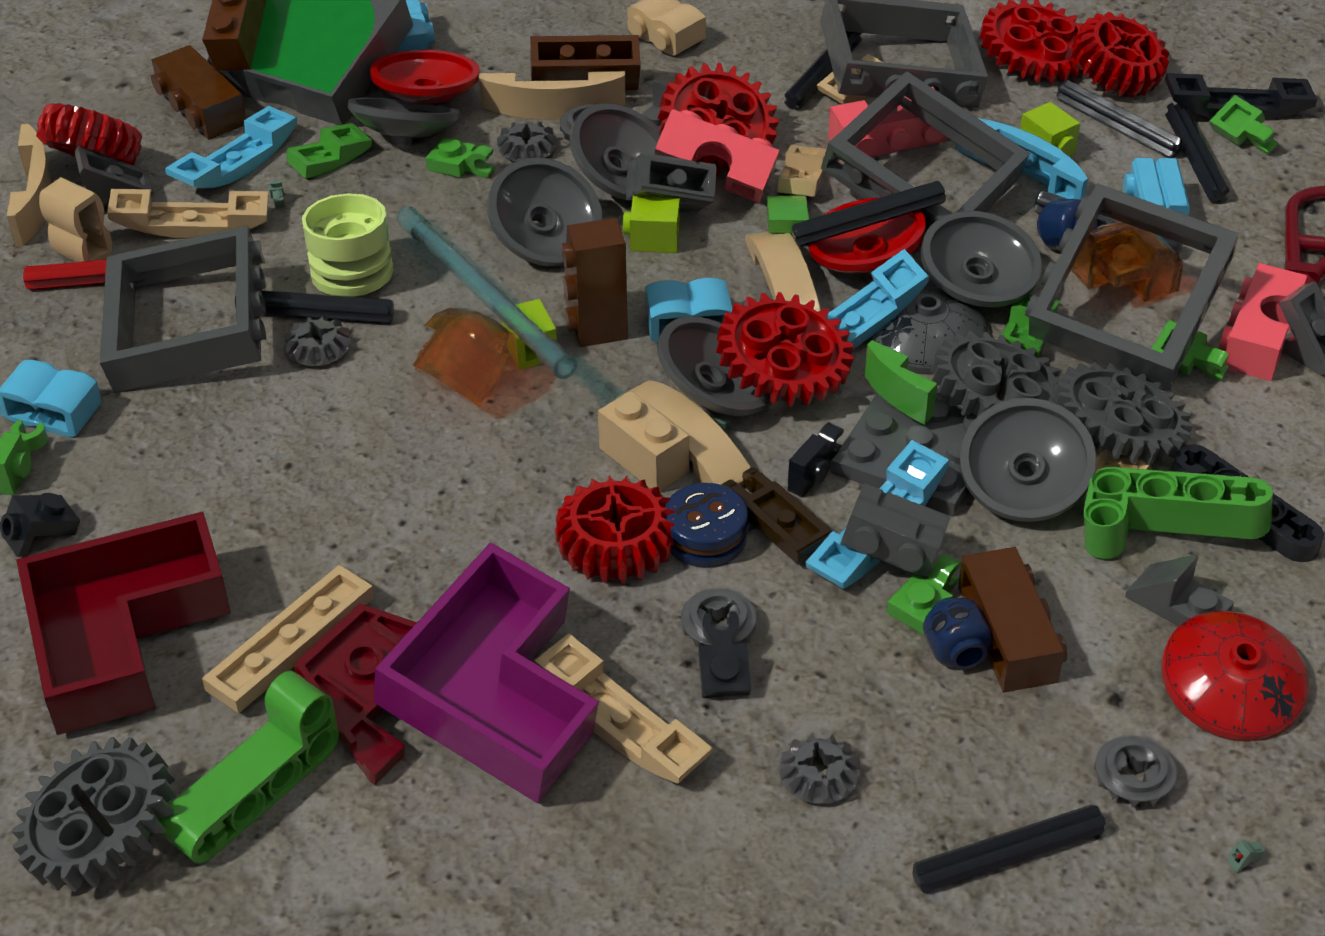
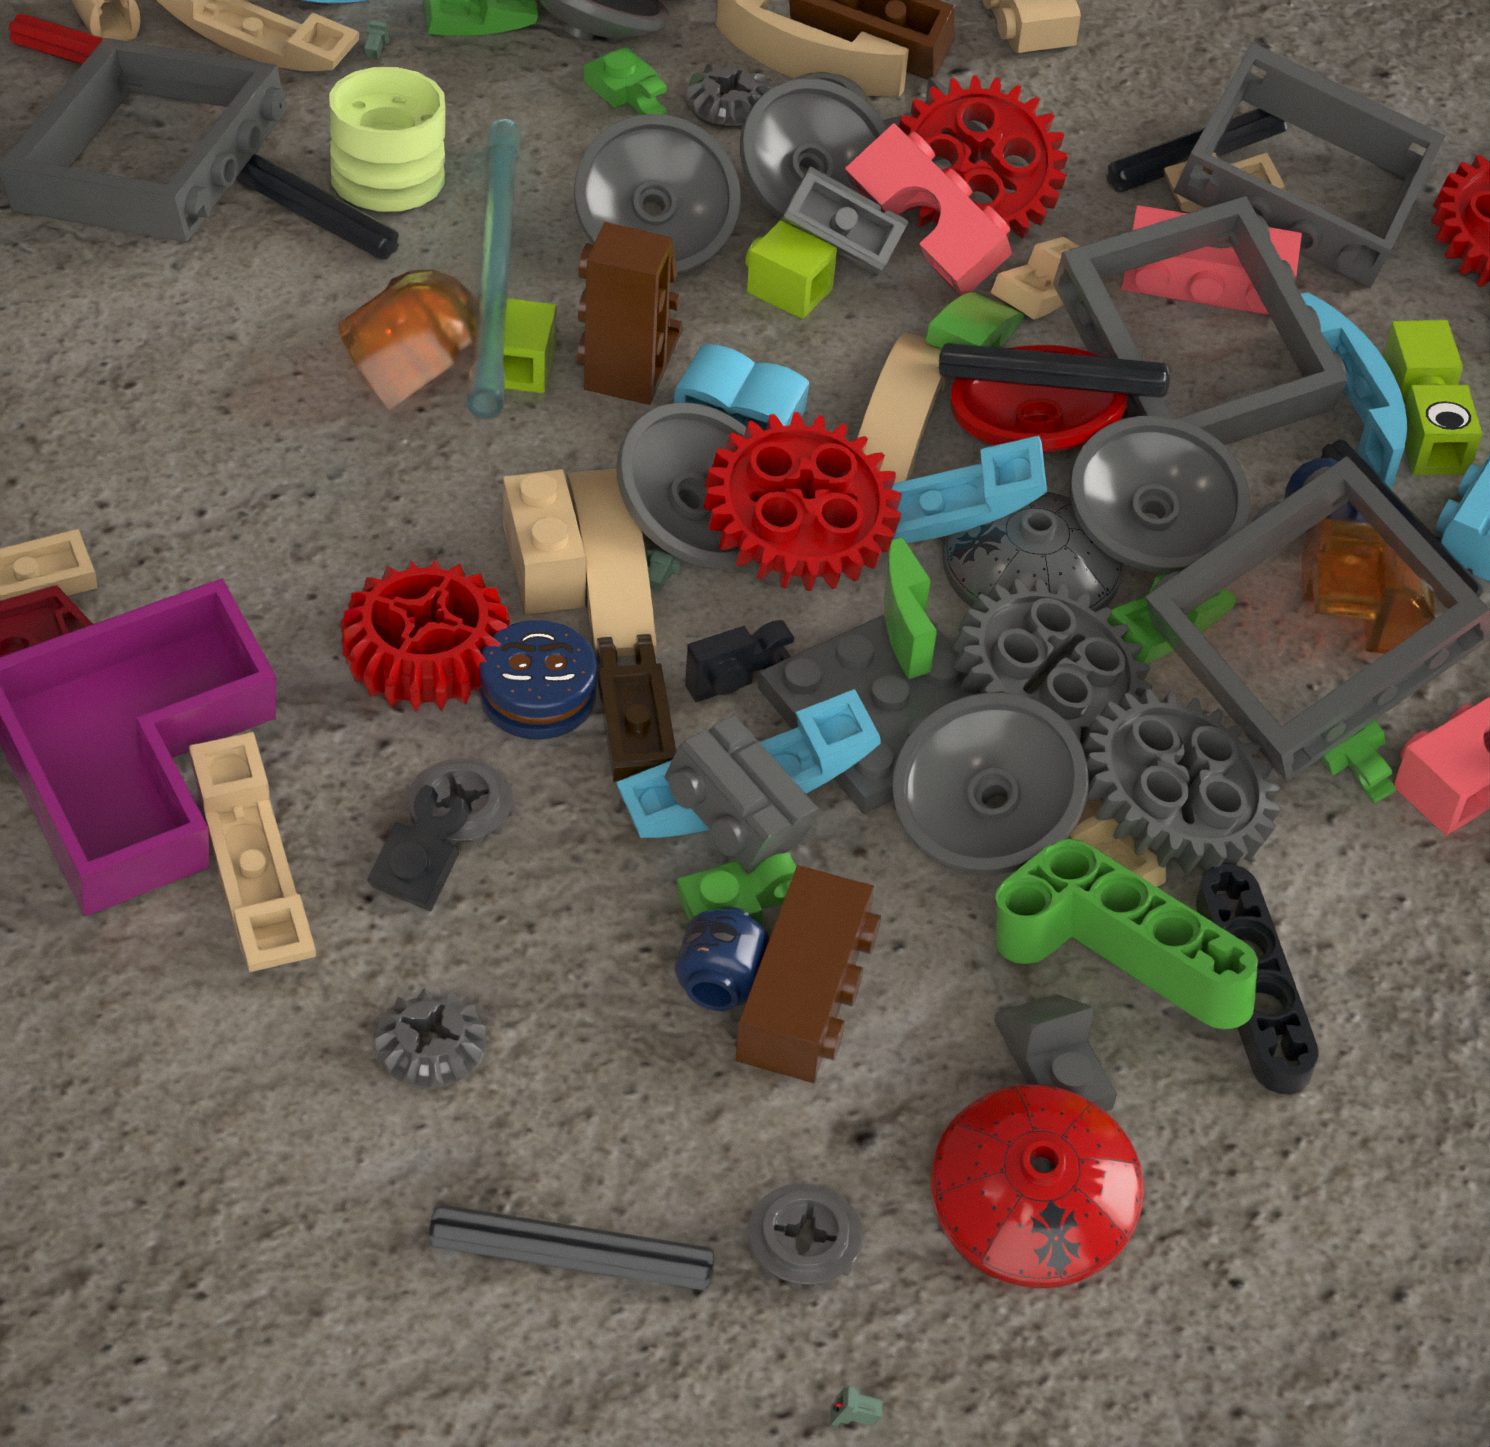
camera: 25 degrees right, 5 degrees up
(306, 351) = (290, 259): flat silver gear -> none
(1095, 158) = (1441, 429): none -> lime brick

